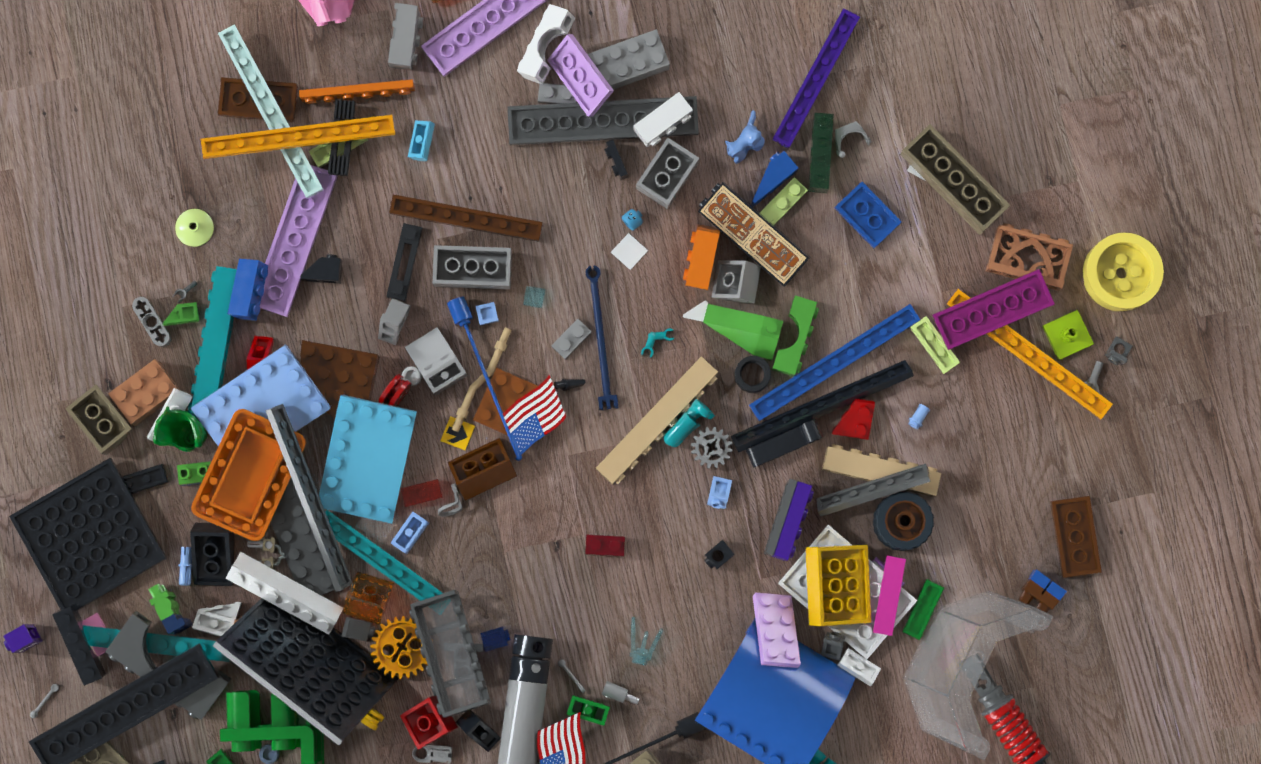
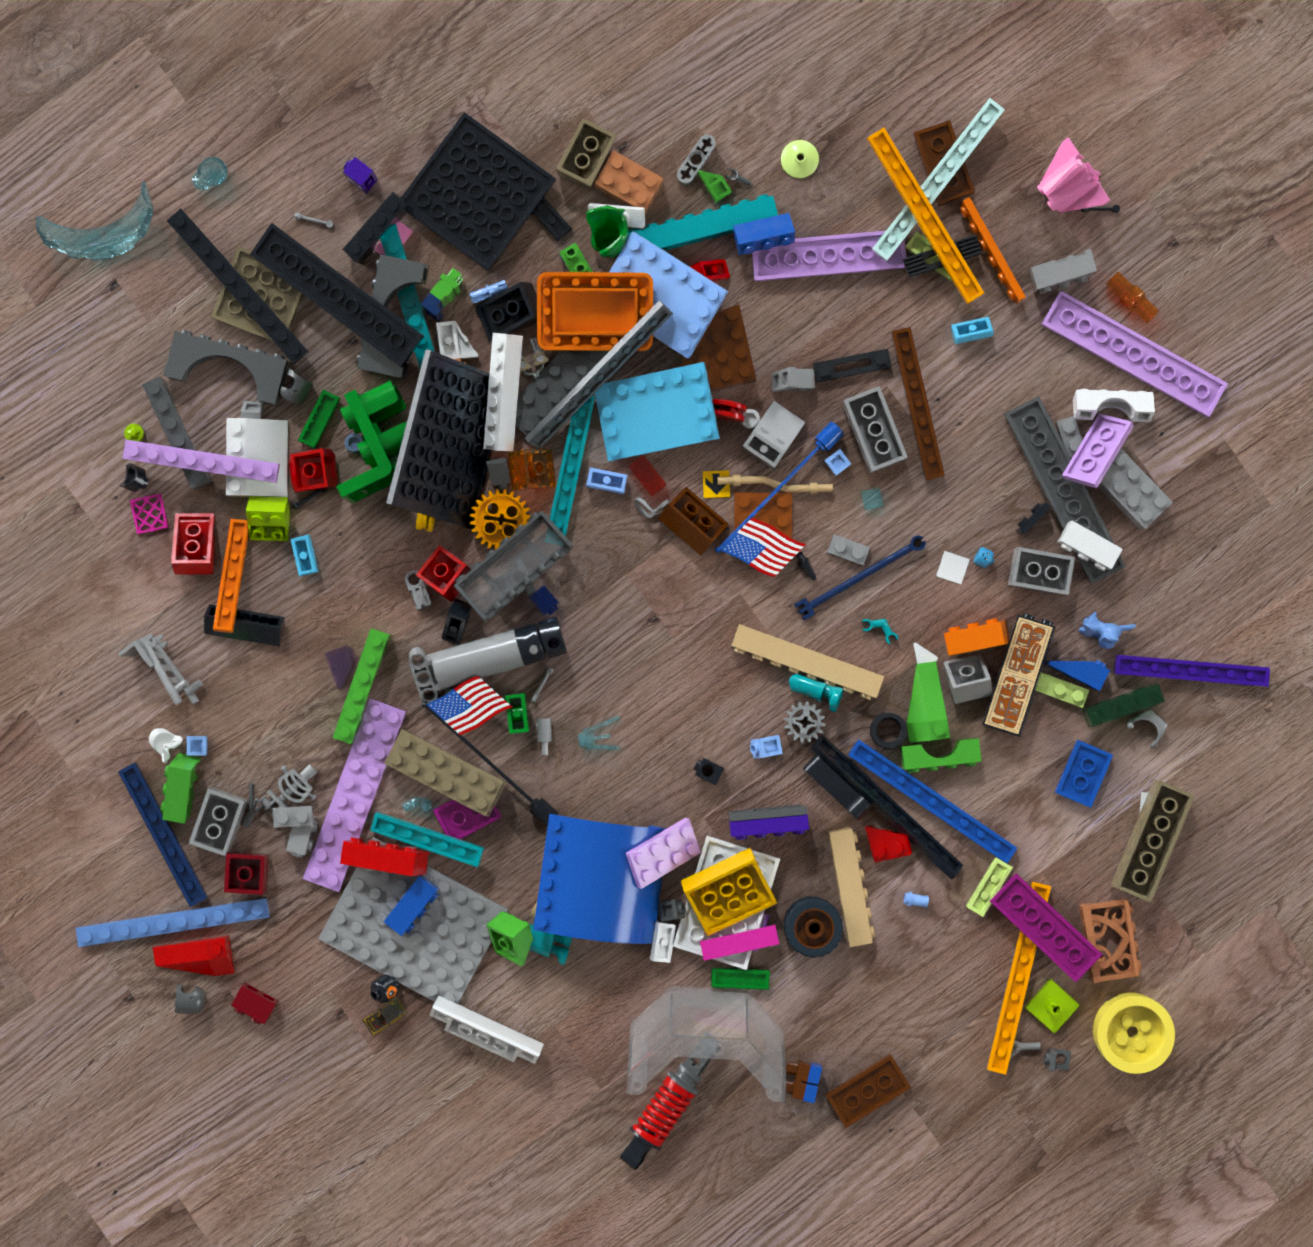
camera: 65 degrees right, 5 degrees up
(324, 270) = (812, 296): black slope -> none
(605, 545) = (672, 663): dark red brick -> none
(873, 490) = (830, 887): dark grey plate -> none

